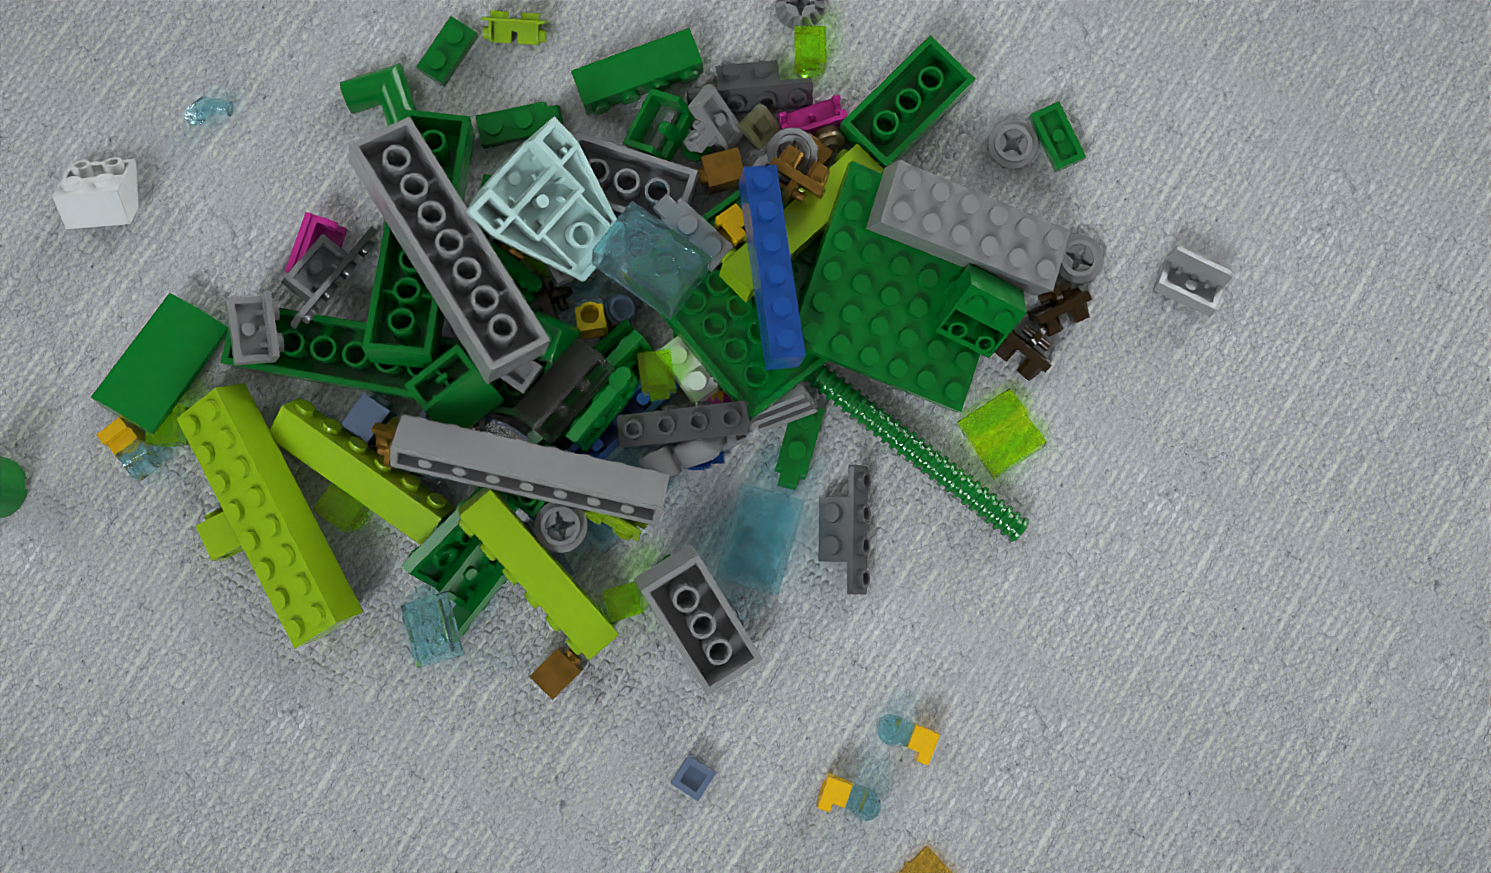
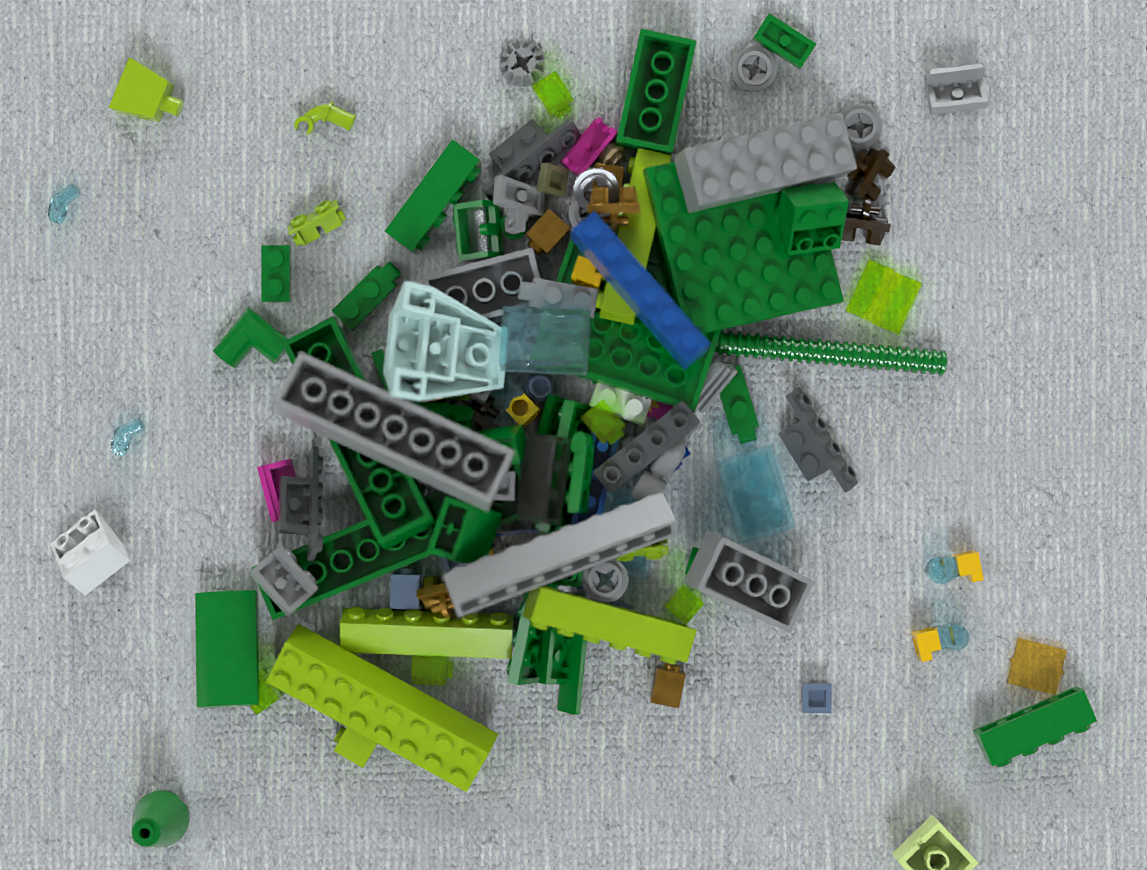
camera: 25 degrees left, 5 degrees up
(130, 448) = (245, 725): leg -> none
(432, 629) = (557, 714): clear light blue plate -> none

